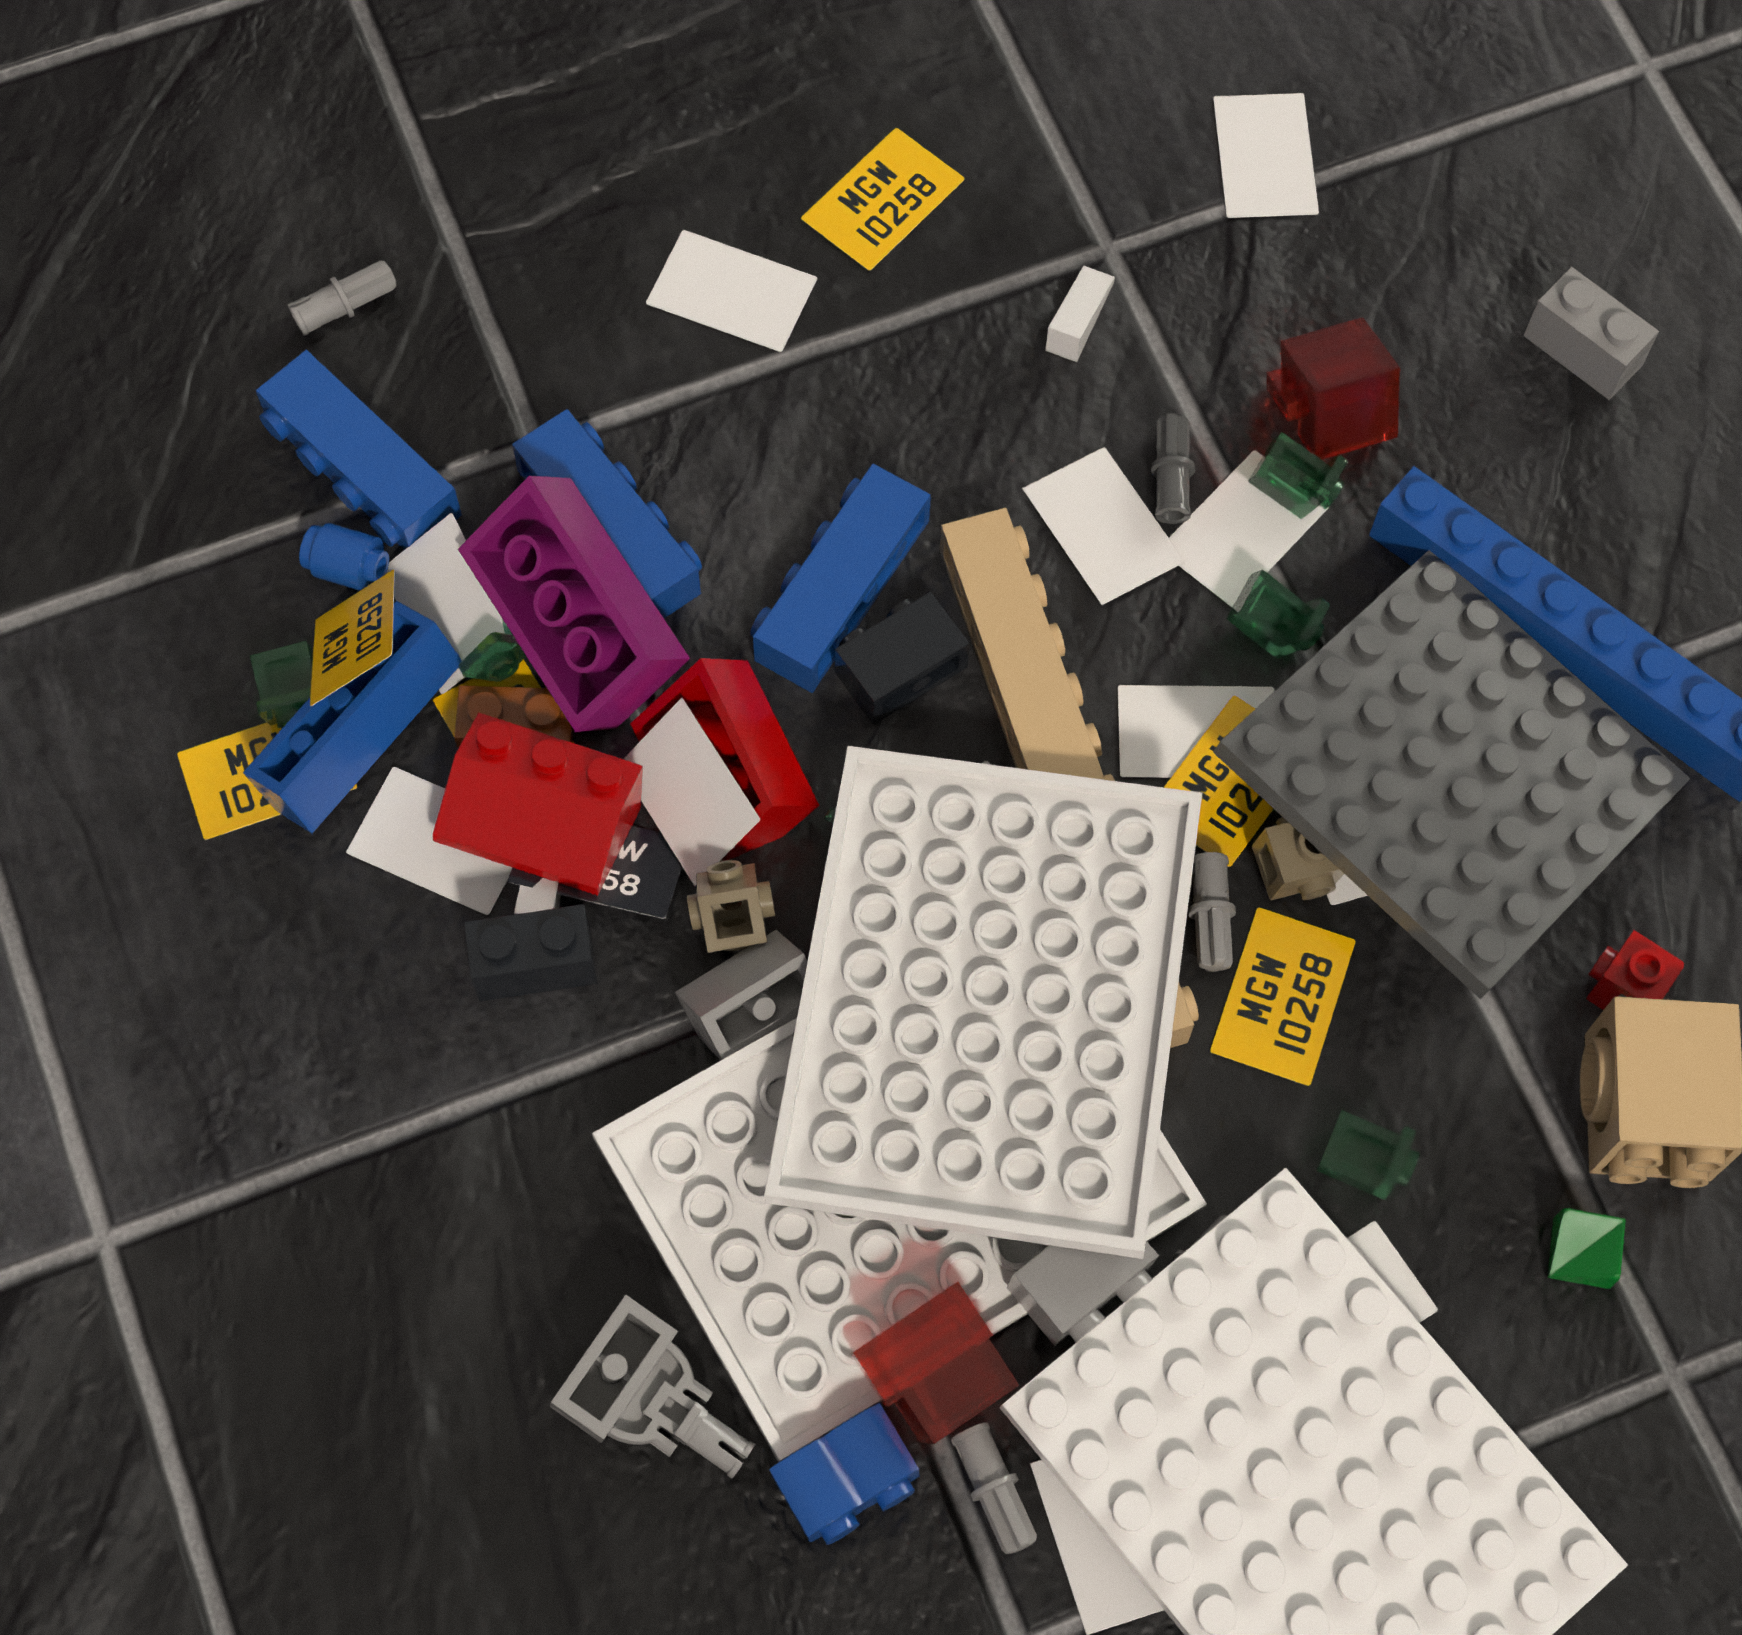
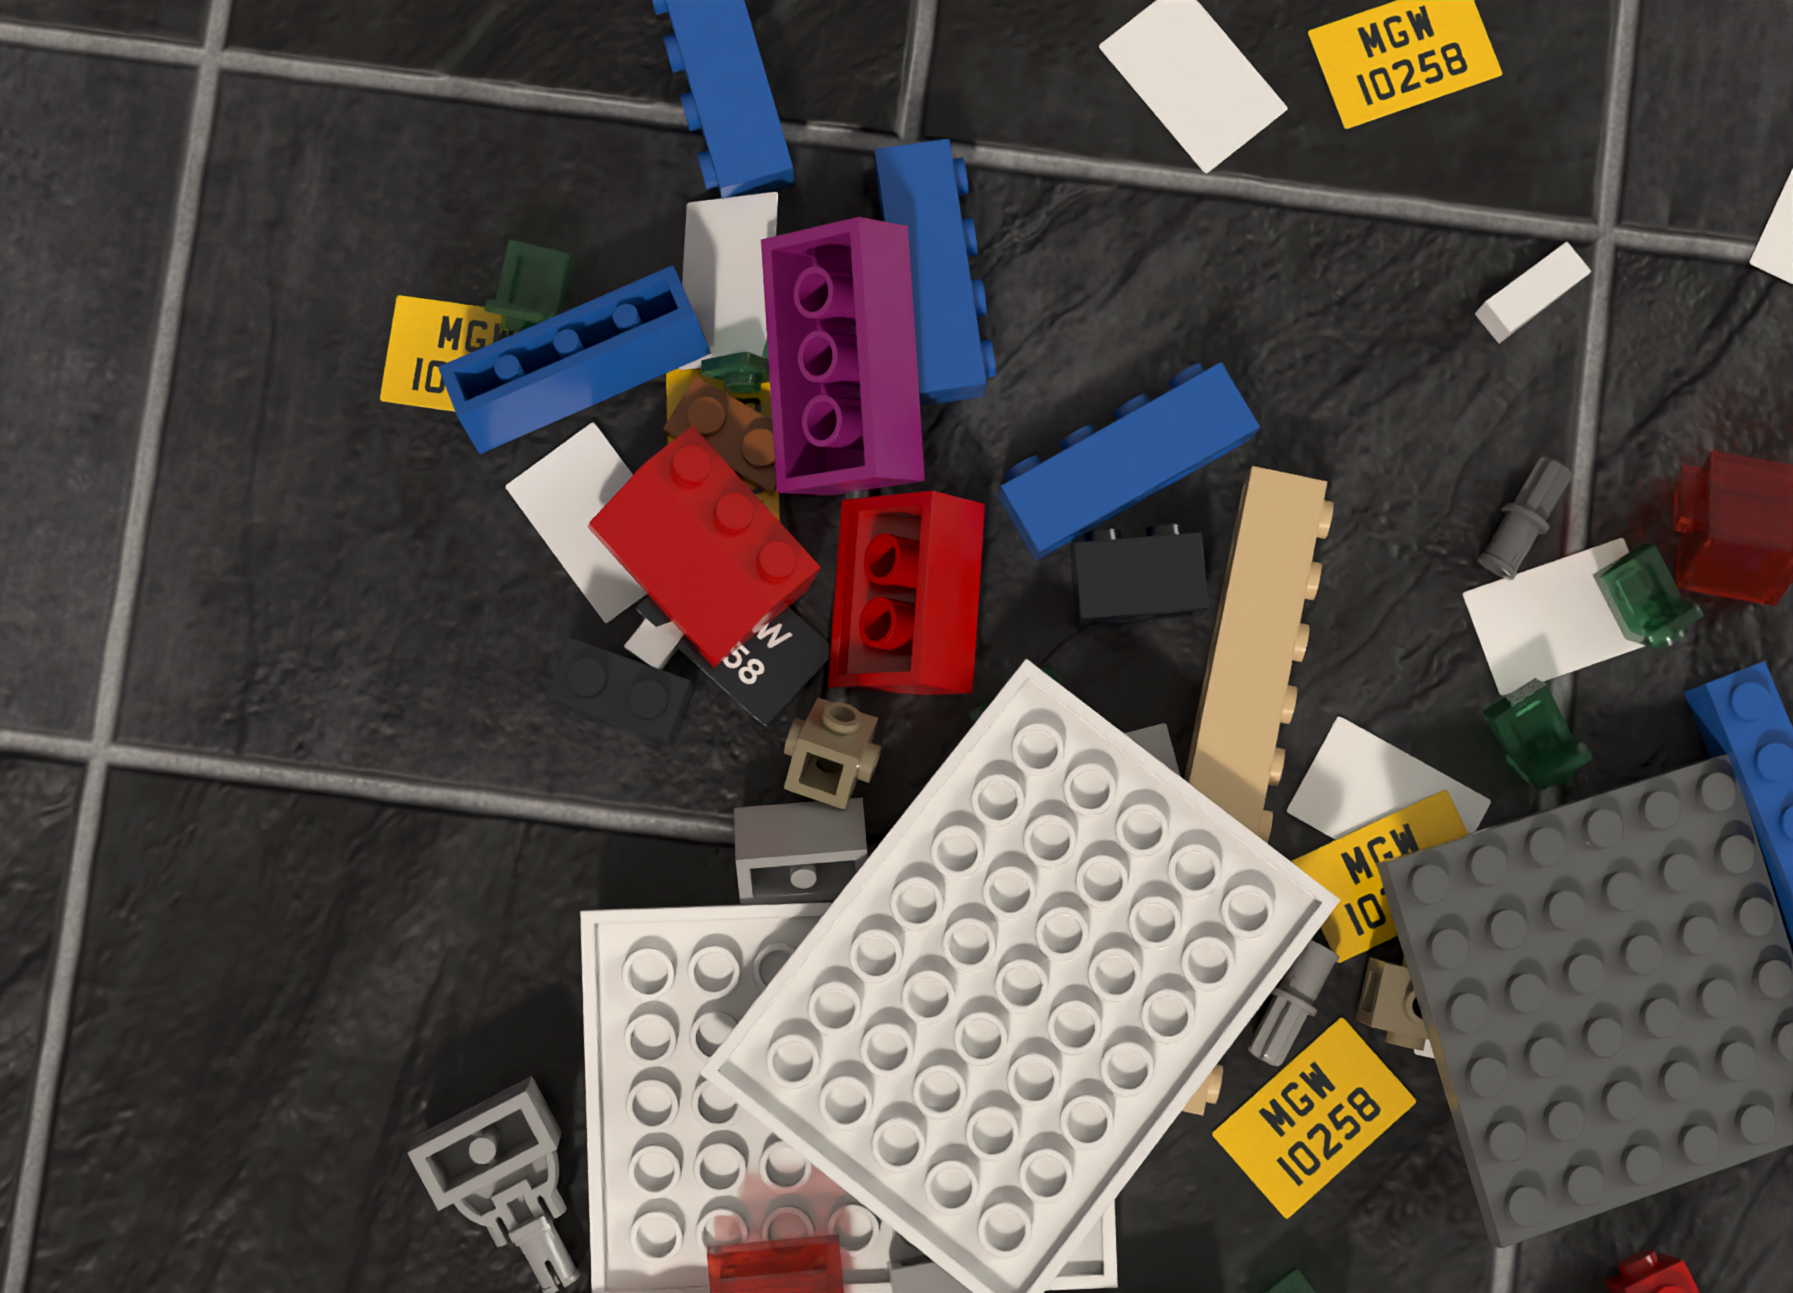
camera: 25 degrees right, 15 degrees up
(343, 555) = (654, 176): blue brick -> none
(353, 637) = (613, 279): yellow sticker -> none
(691, 791) = (856, 610): white sticker -> none
(1103, 525) = (1422, 538): white sticker -> none

